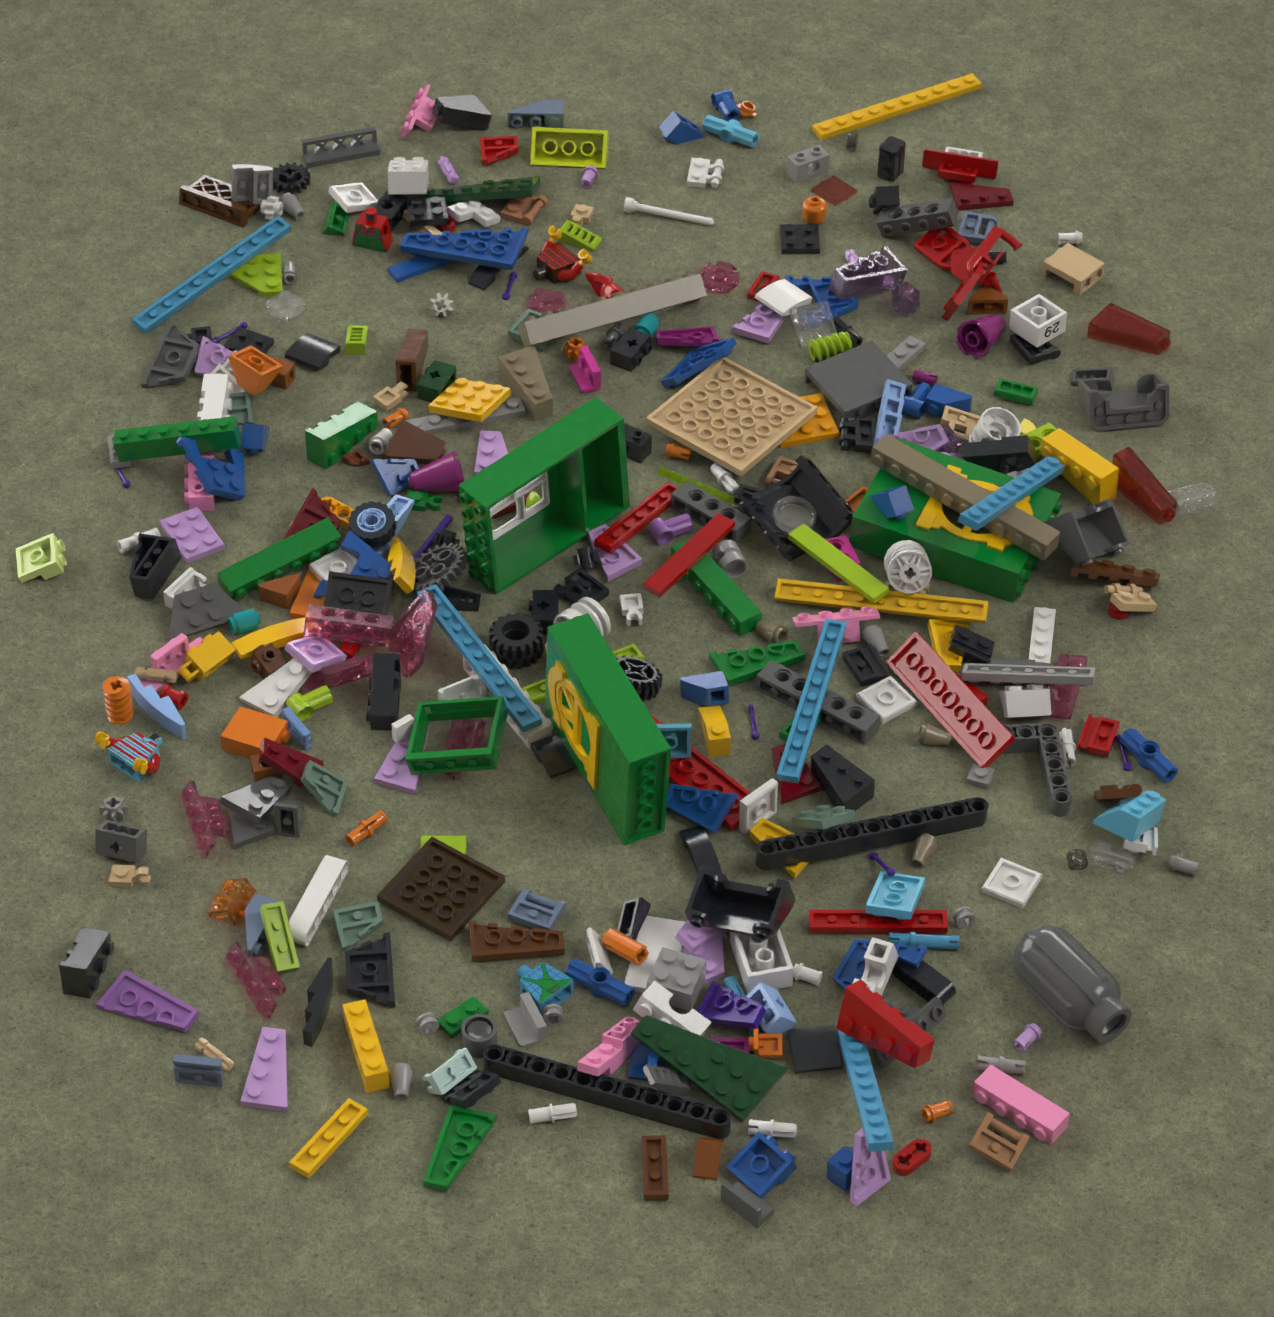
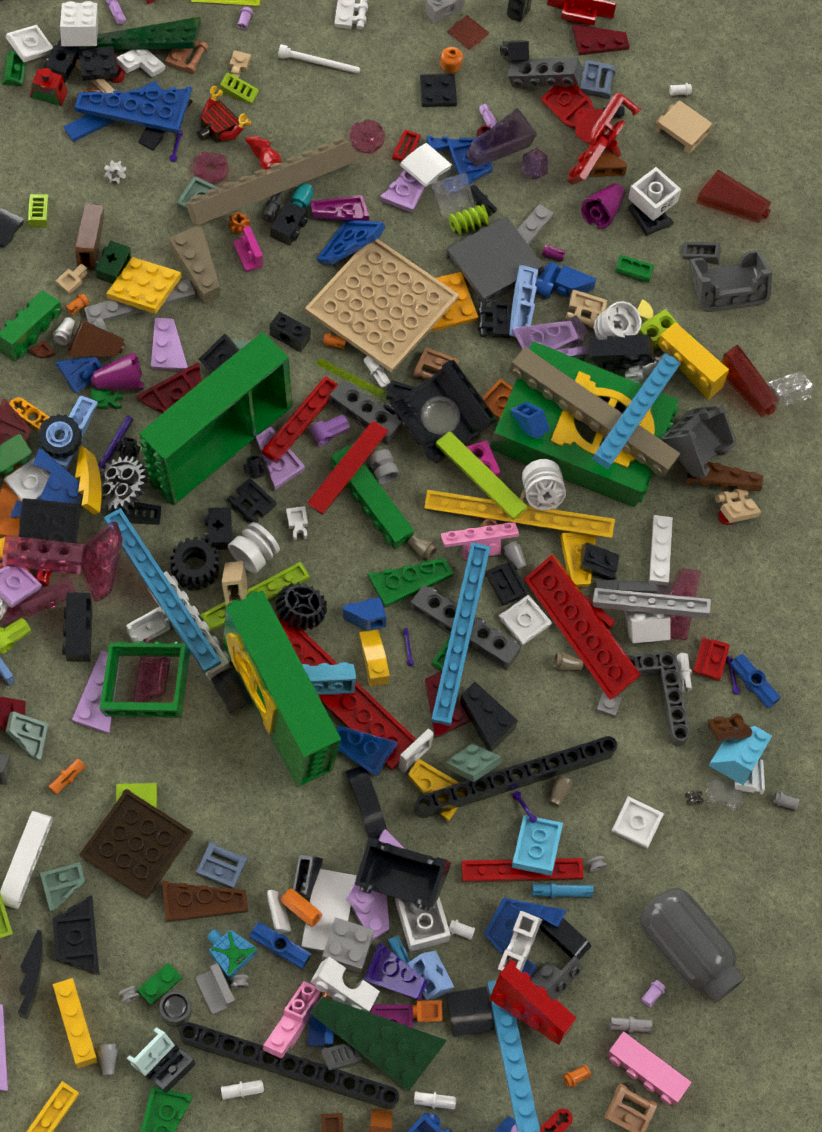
camera: 10 degrees left, 20 degrees up
(402, 728) = (96, 669): white tile -> none

